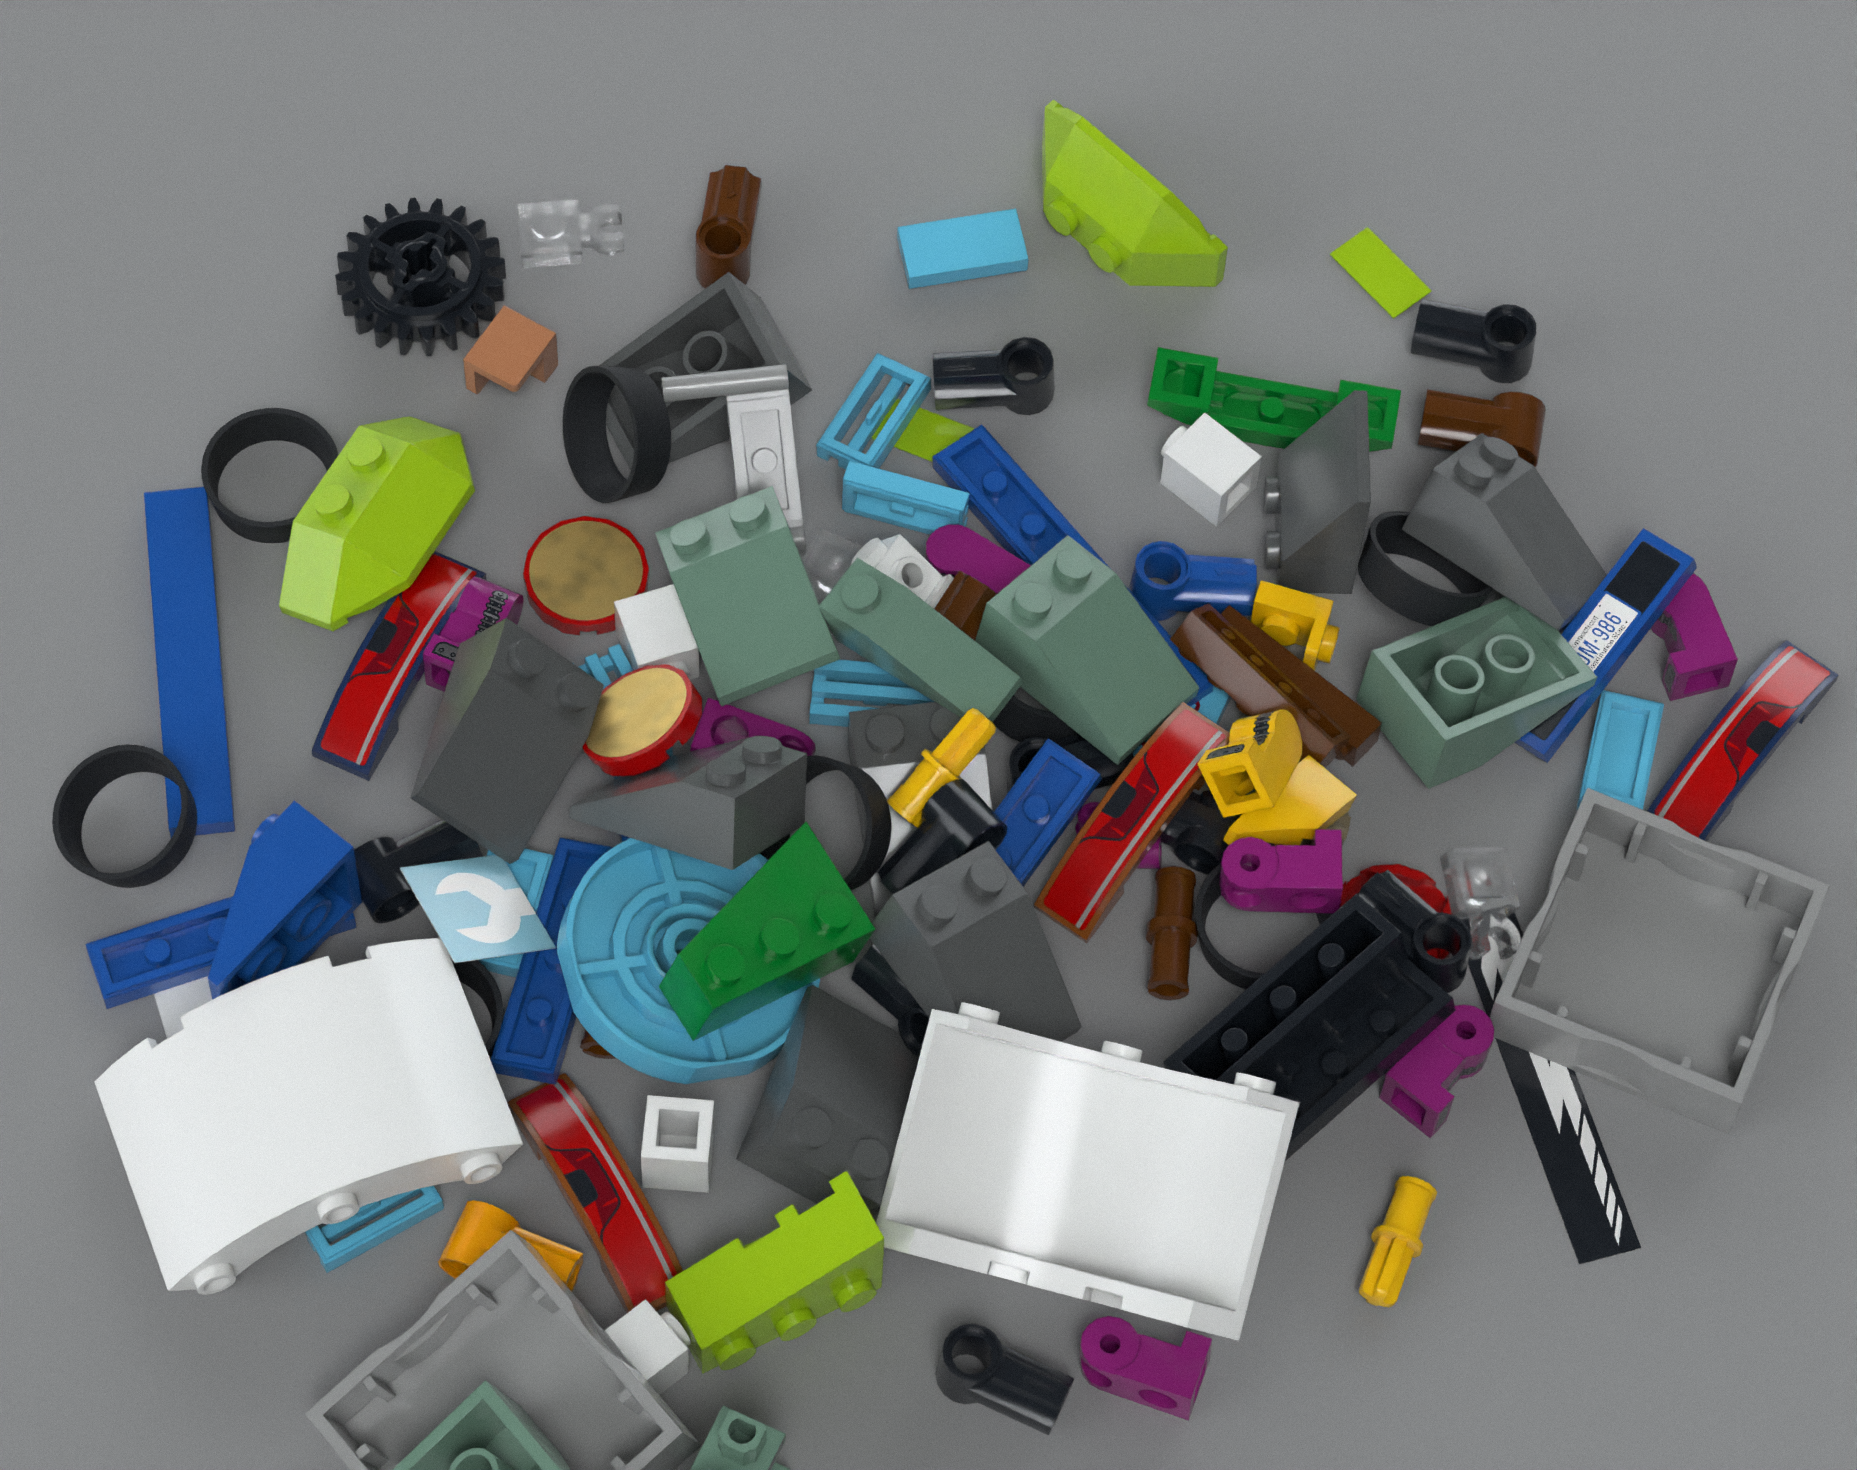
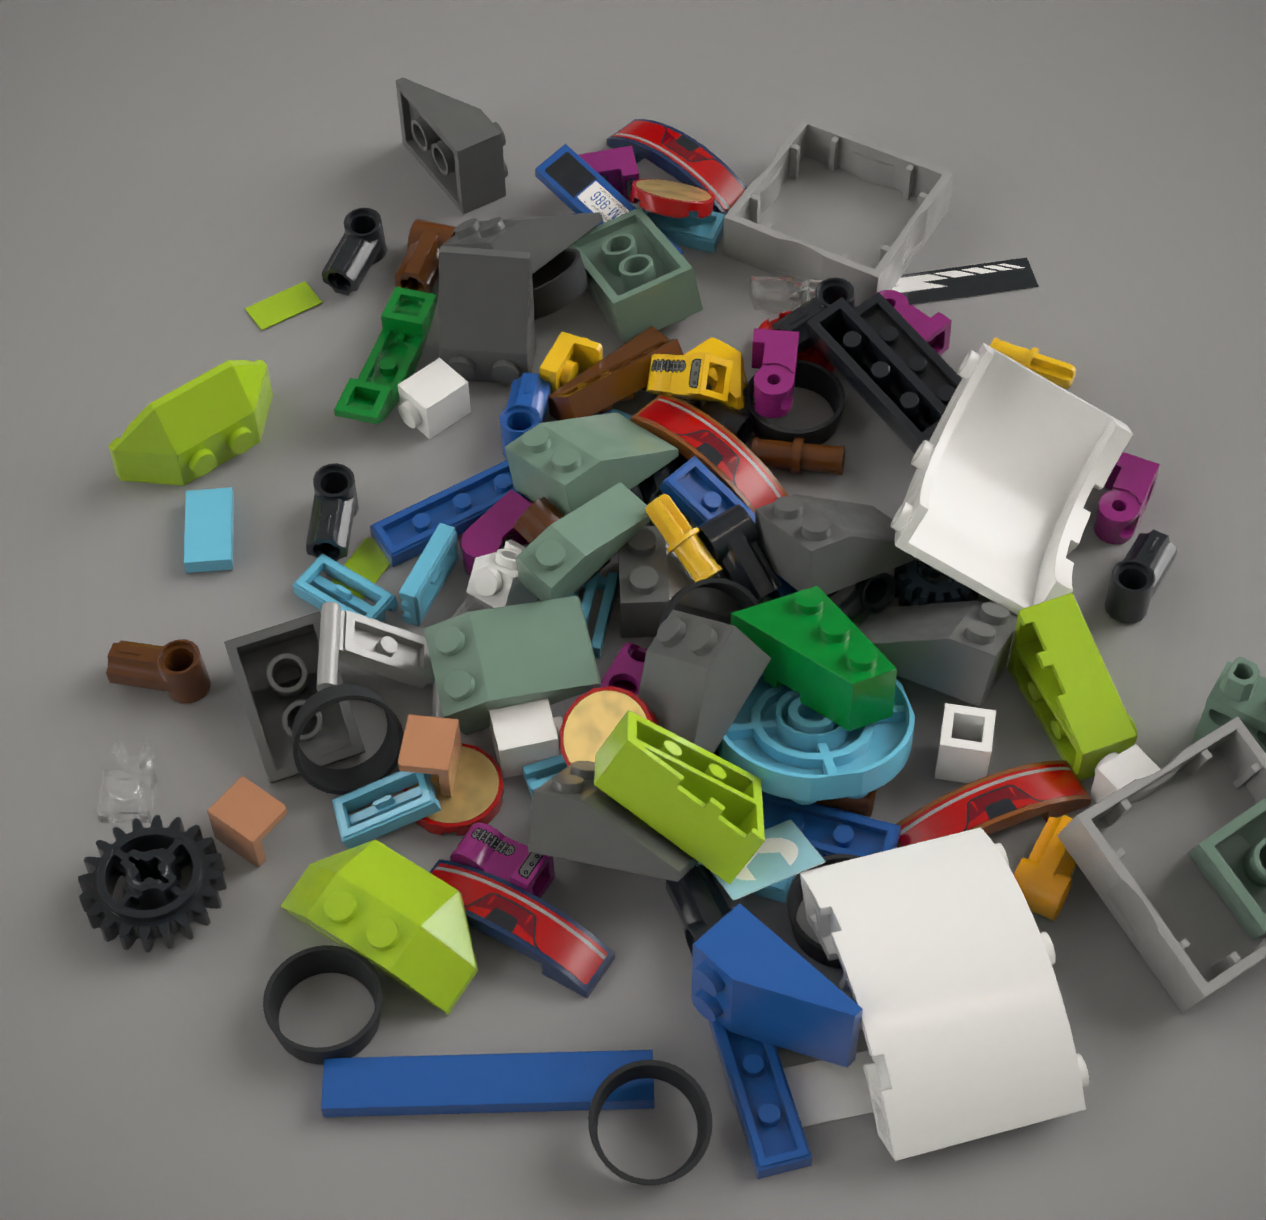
camera: 80 degrees left, 10 degrees down
(528, 791) = (683, 793): none -> lime wedge
(559, 530) = (387, 811): none -> medium azure tile
(603, 529) = (432, 747): none -> nougat panel
(1631, 721) = (671, 198): none -> tile
(1673, 426) = (453, 145): none -> dark grey slope

